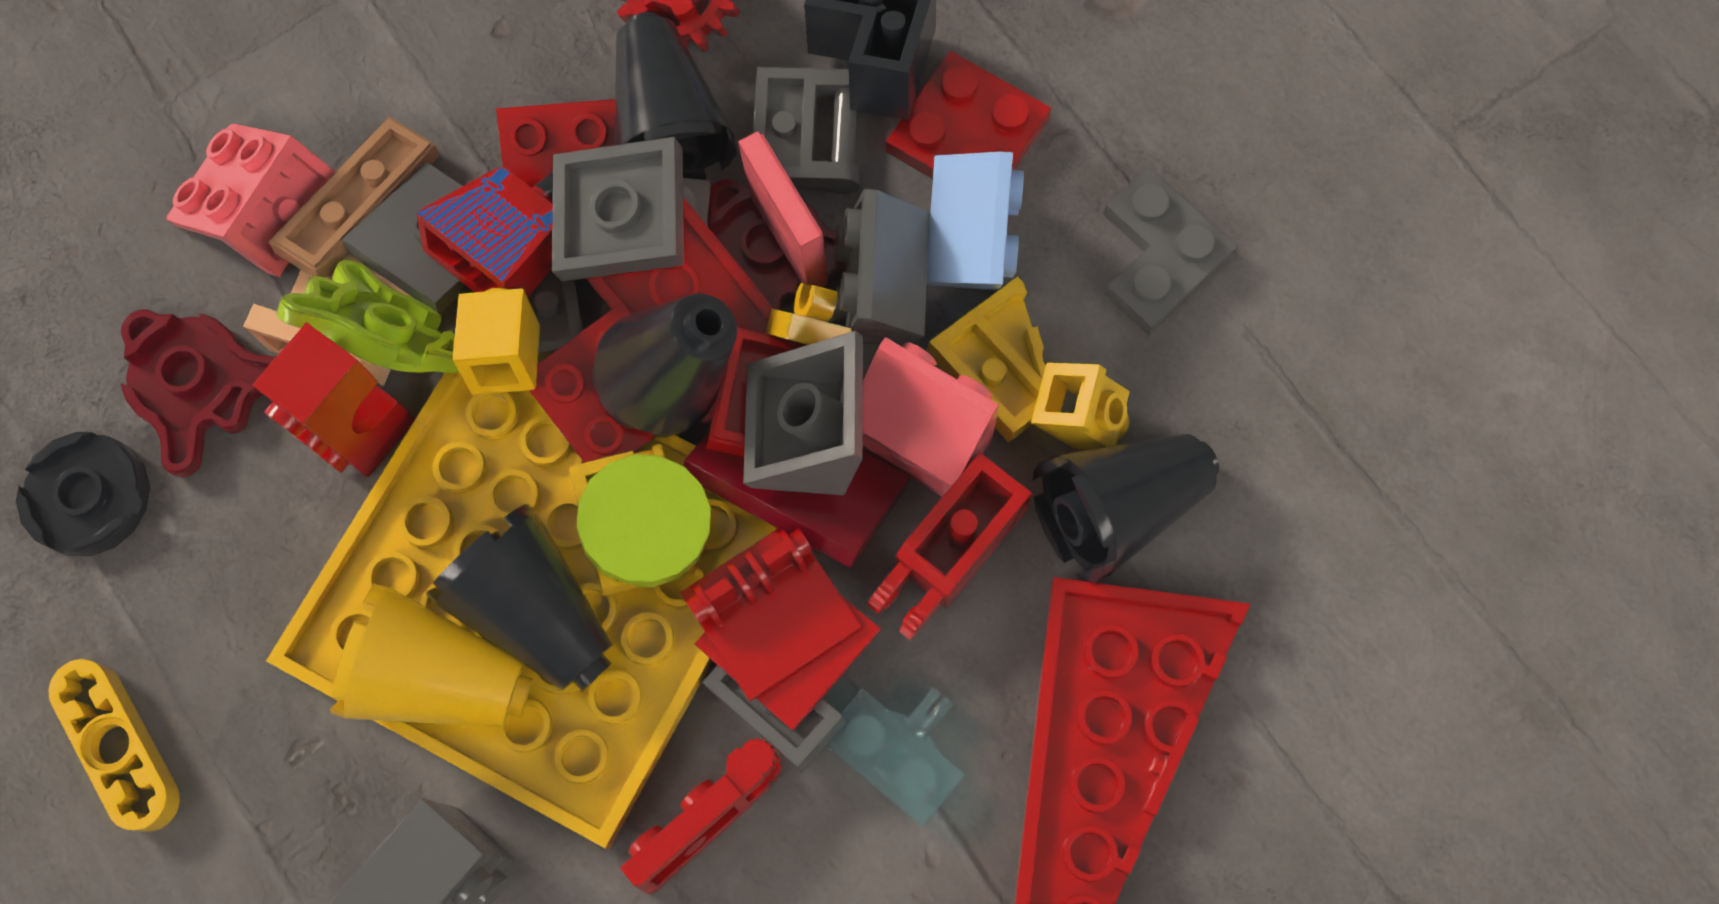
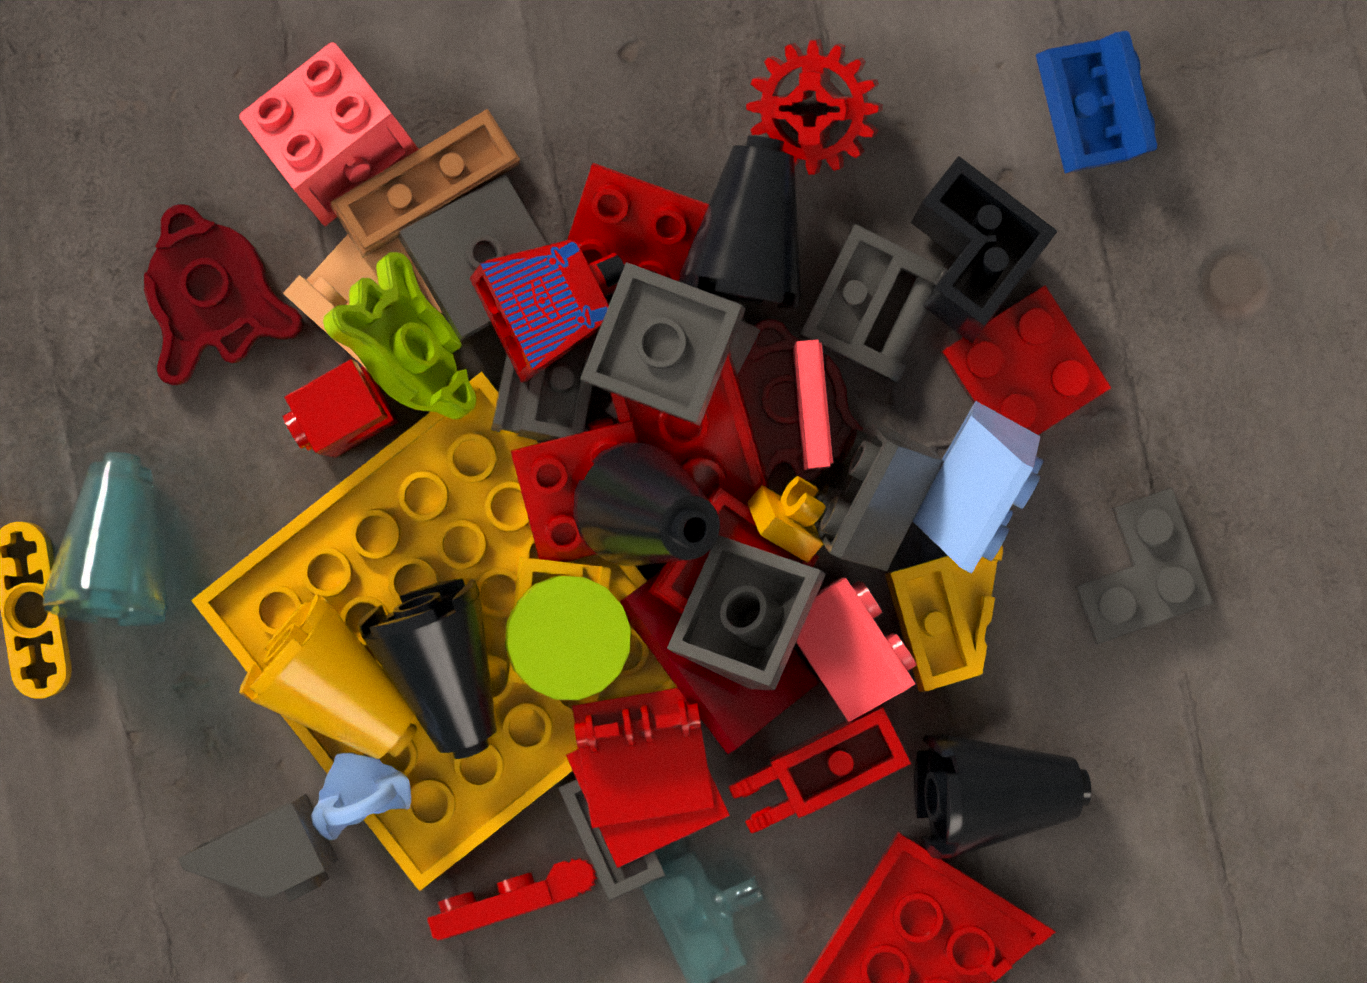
camera: 15 degrees right, 15 degrees up
(83, 494) = (75, 361): black tile -> none
(166, 651) = (111, 549): none -> clear light blue cone
(496, 341) = (506, 417): yellow brick -> none
(496, 770) = (356, 789): none -> light blue piece
(1099, 412) = (1007, 706): yellow brick -> none

